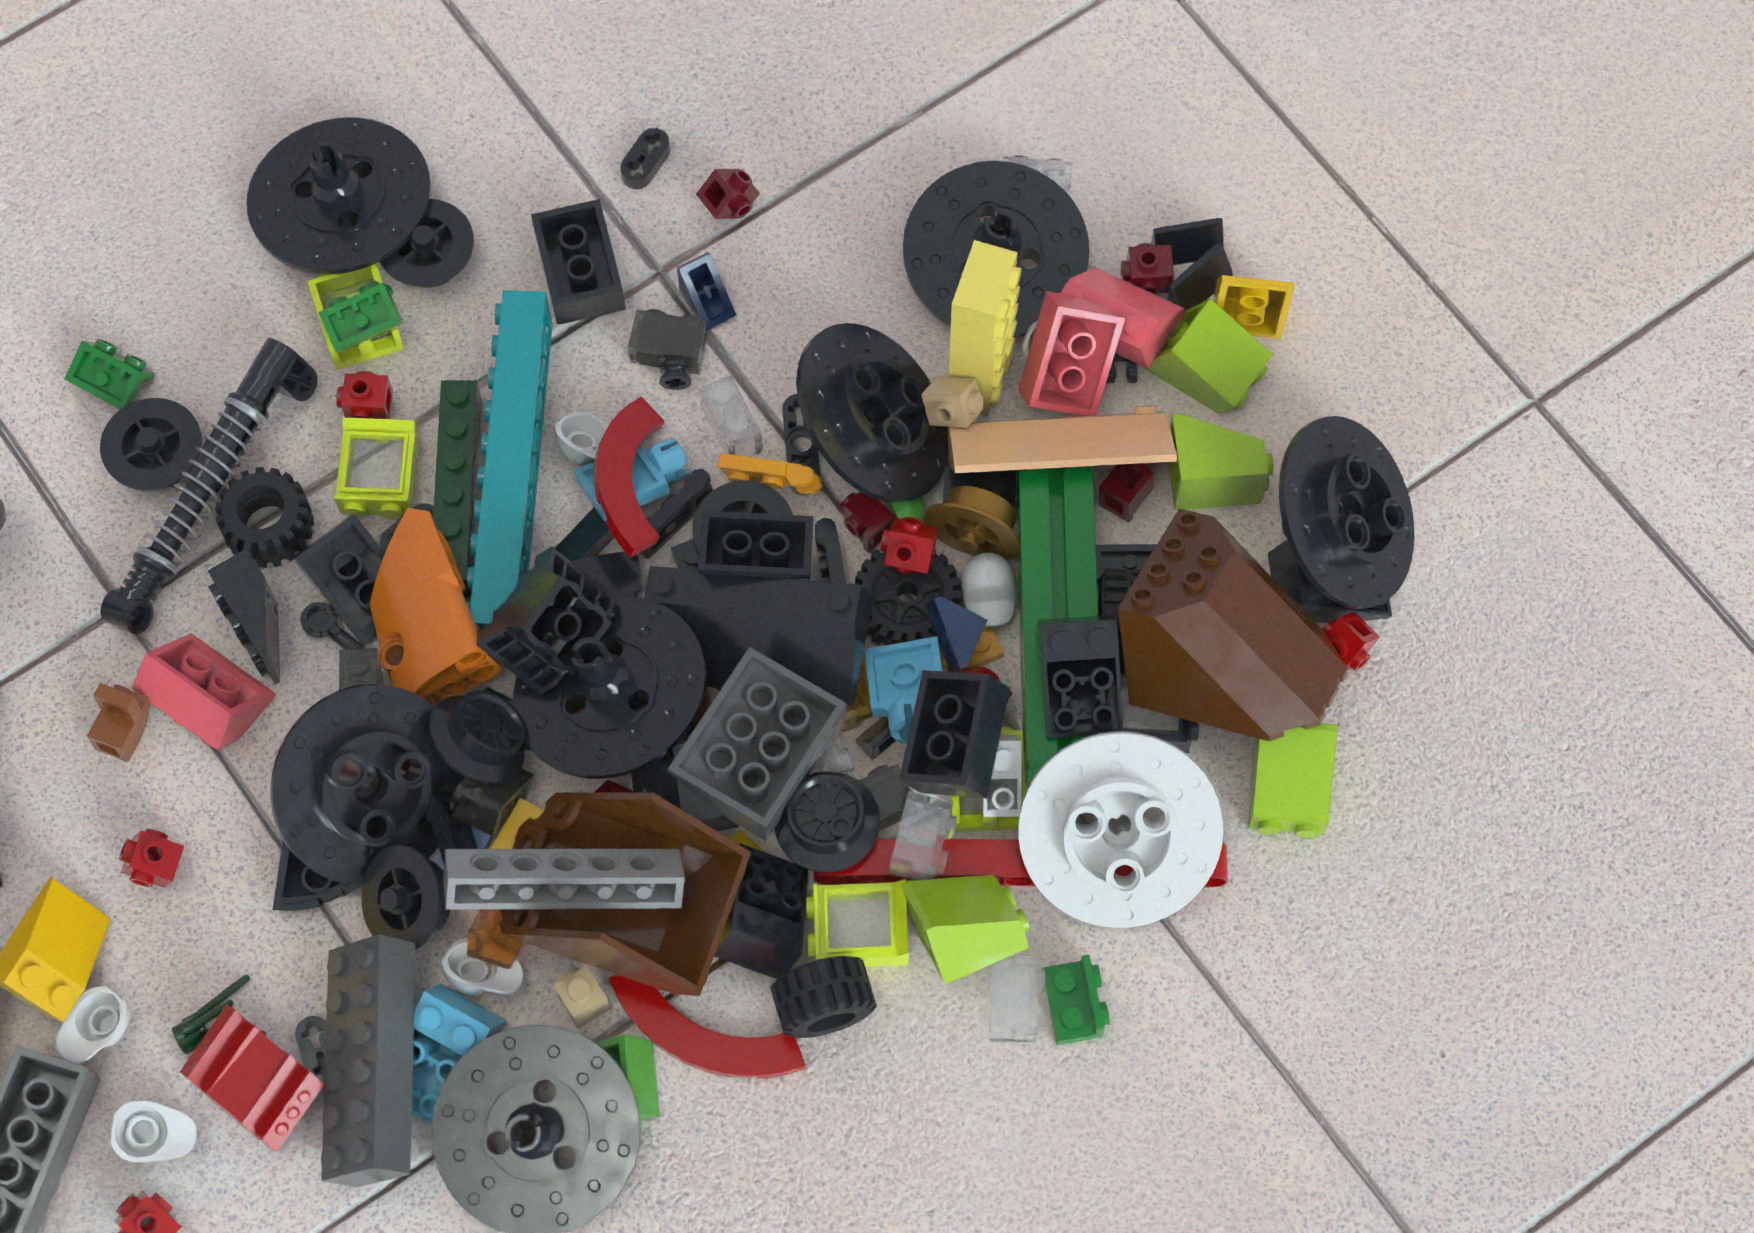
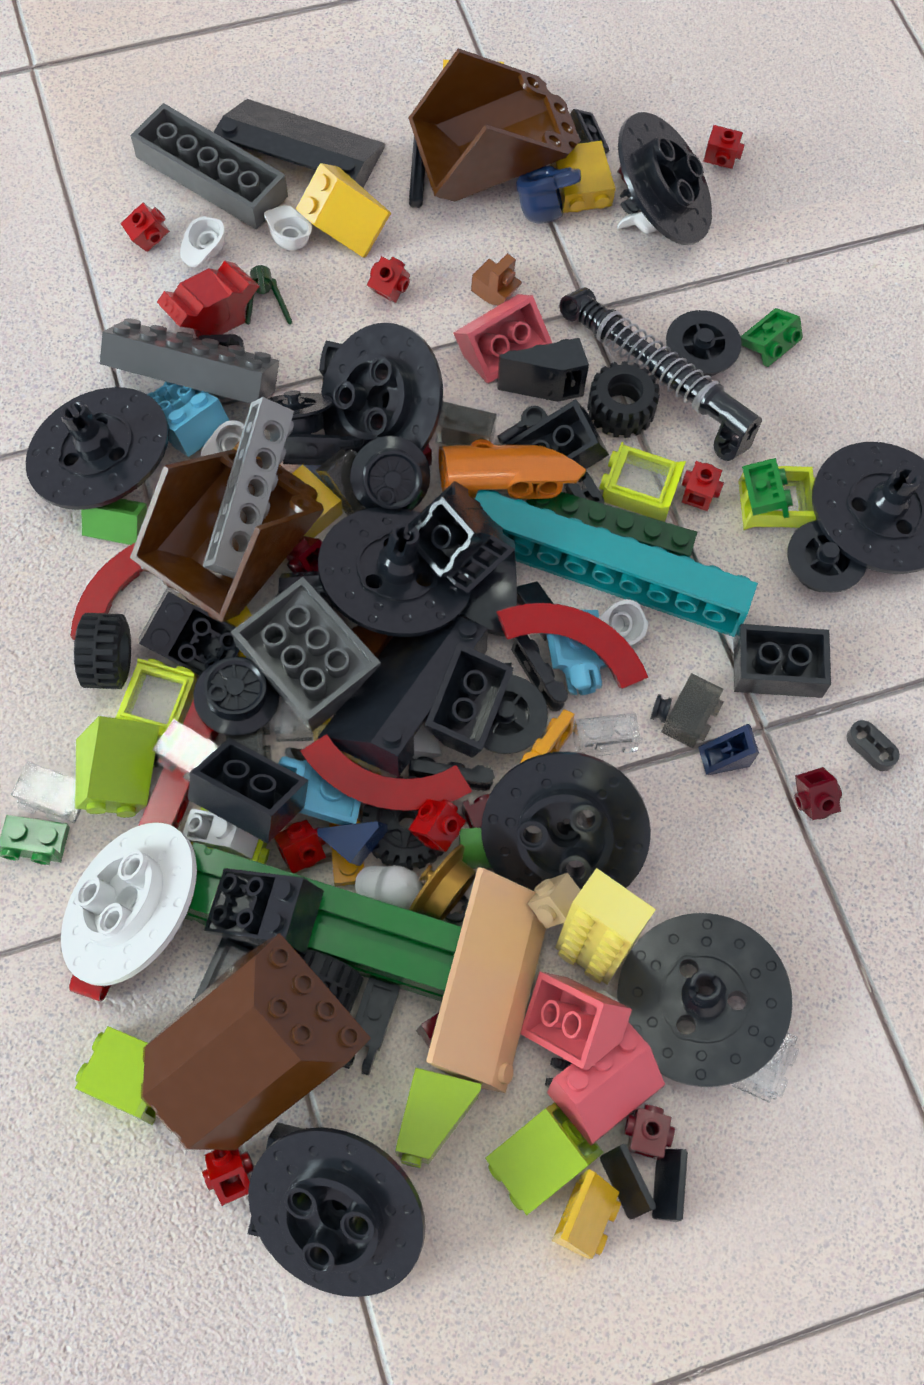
camera: 105 degrees right, 0 degrees up
(888, 617) = (379, 789): none -> red tile

